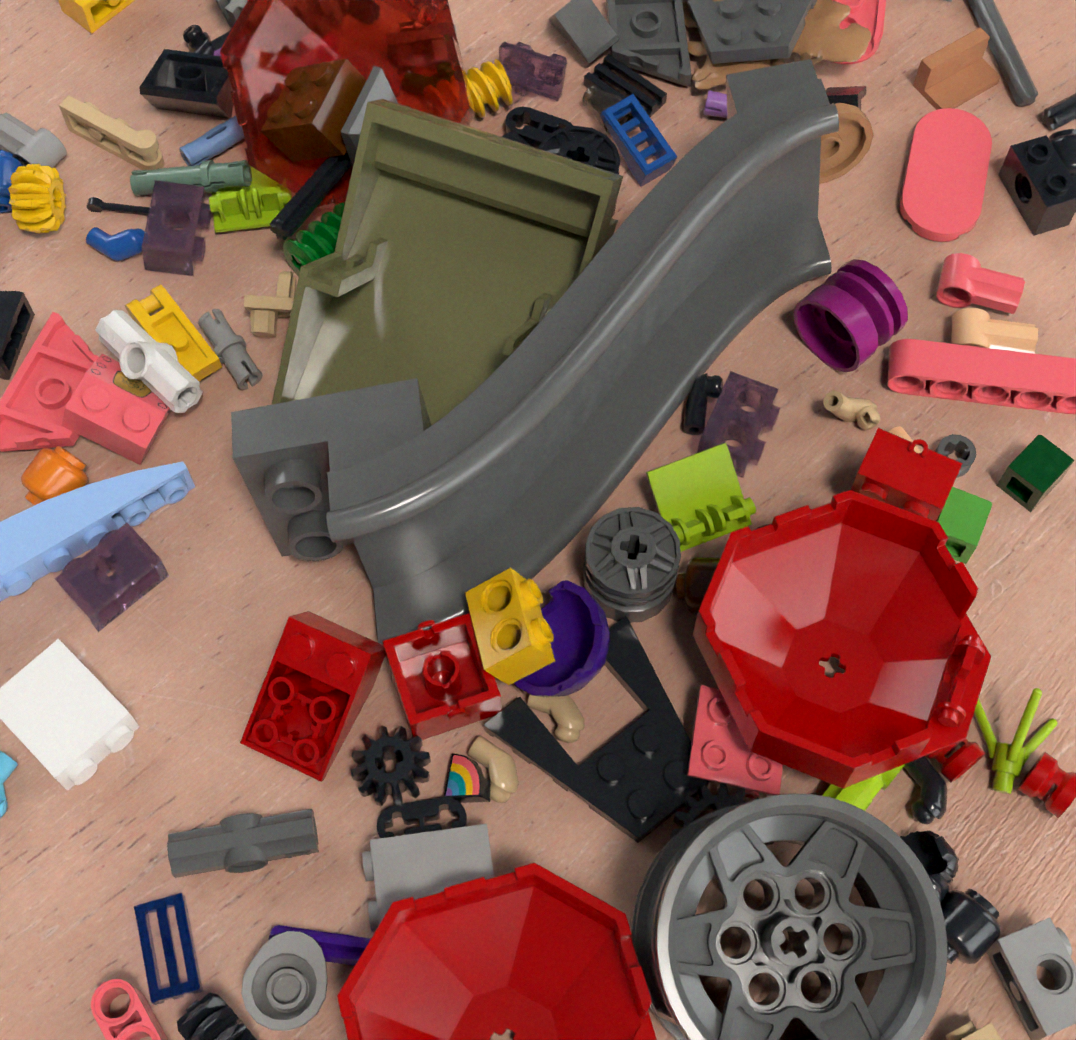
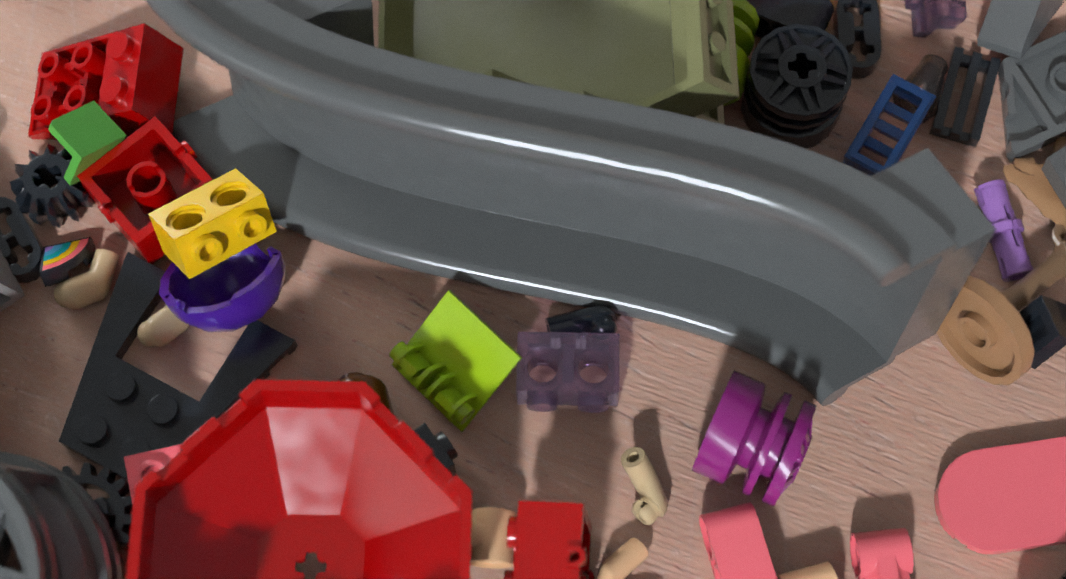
camera: 70 degrees right, 5 degrees up
(379, 701) = (86, 135): none -> bright green panel
(626, 585) = (348, 342): dark grey wheel -> none

